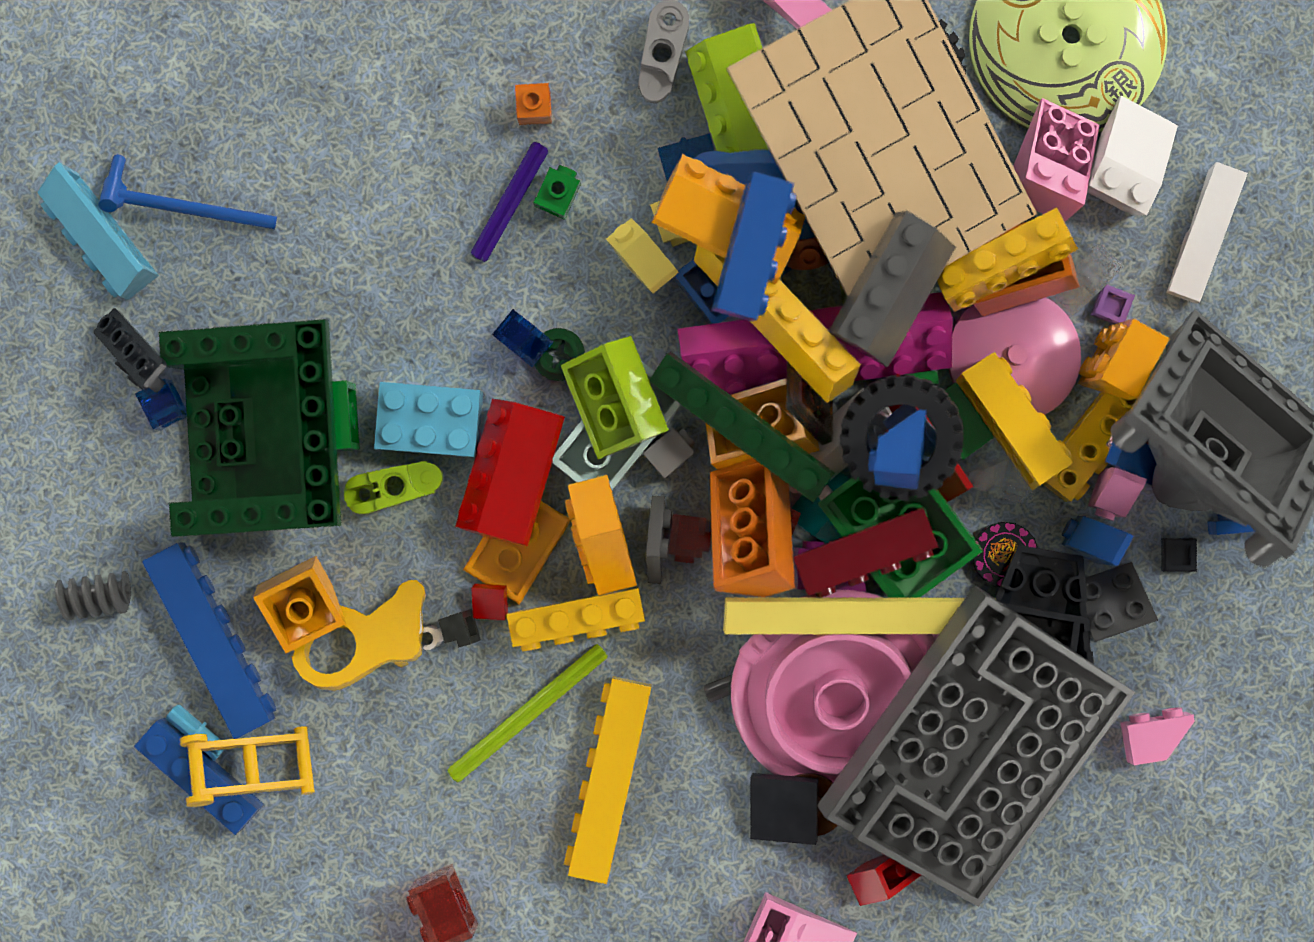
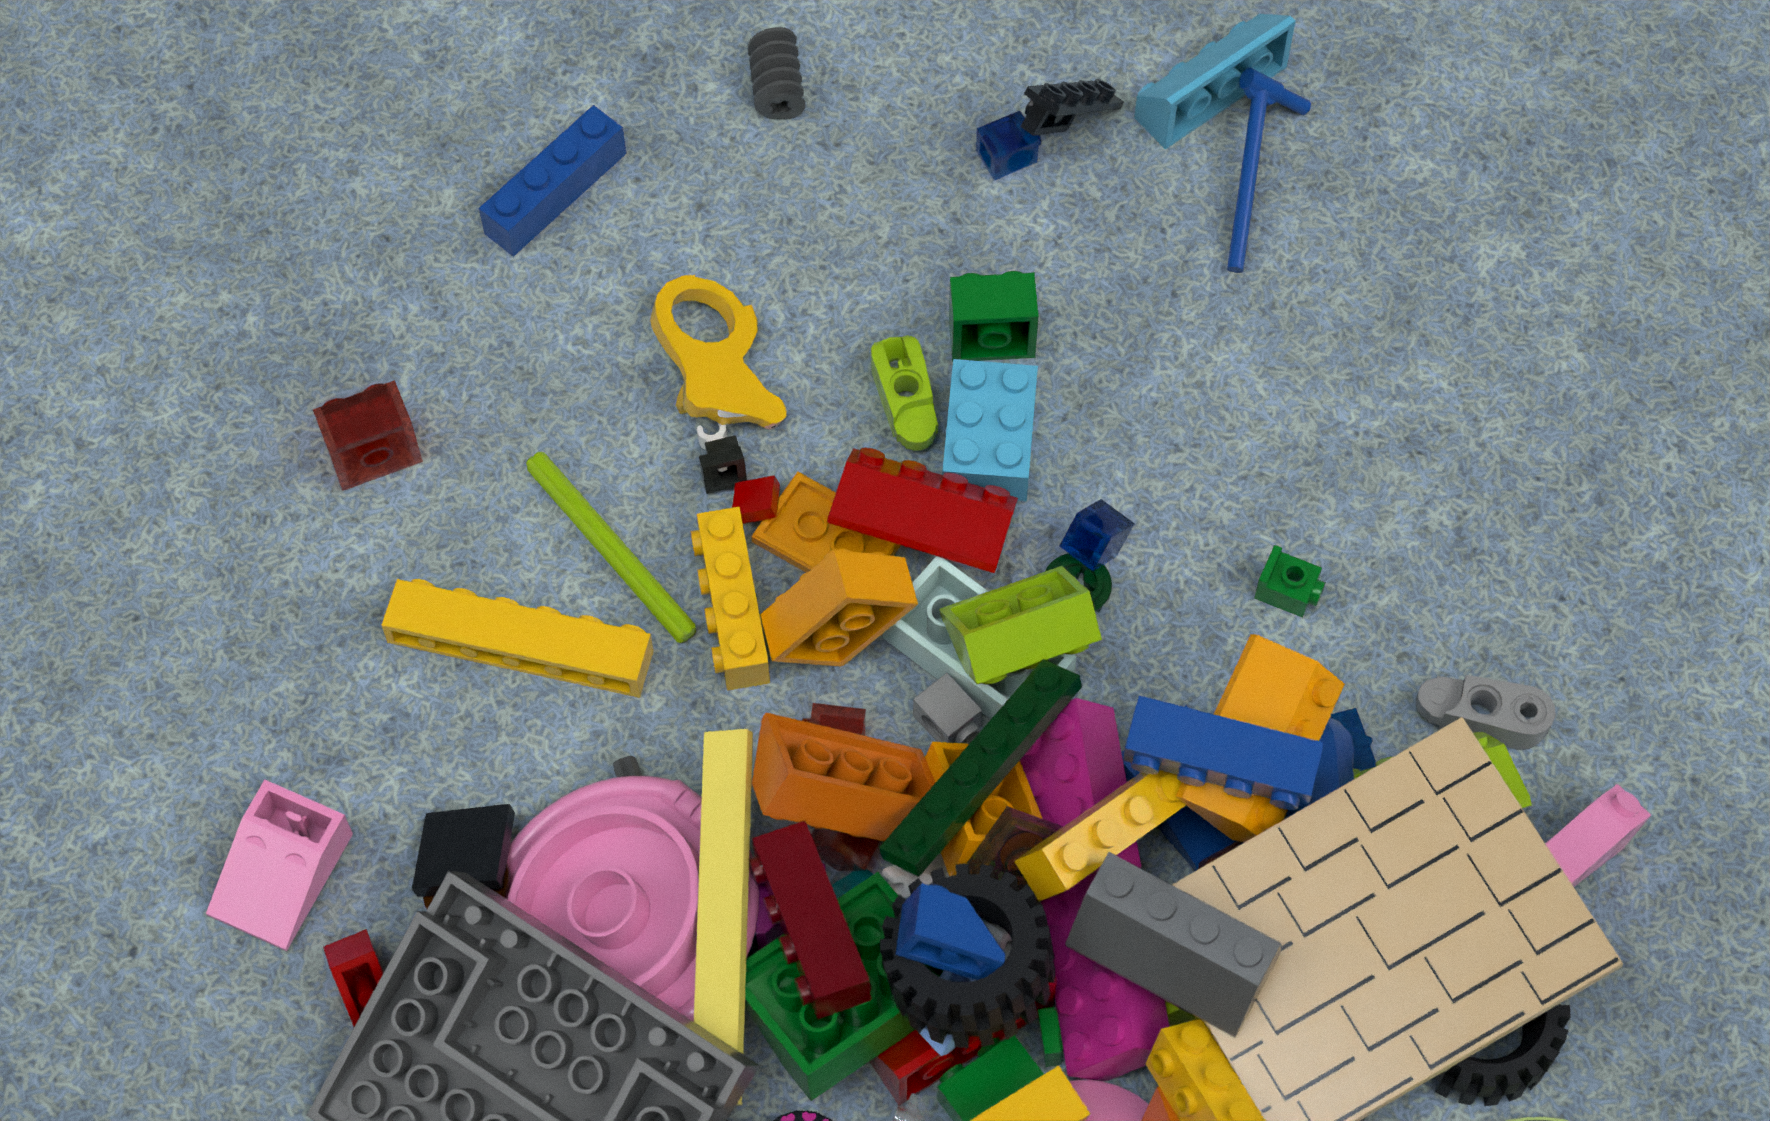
camera: 90 degrees right, 25 degrees down
(189, 725) = (605, 181): medium azure axle -> none
(205, 796) = (593, 168): yellow piece -> none
(209, 639) = (718, 193): blue brick -> none
(257, 427) = (978, 227): dark green slope -> none
(299, 604) = (759, 284): light orange slope -> none
(509, 201) = (1275, 529): dark purple axle -> none
(533, 104) = (1403, 552): orange brick -> none
(641, 255) = (1205, 672): light yellow slope -> none
(657, 546) = (832, 687): dark grey wing -> none

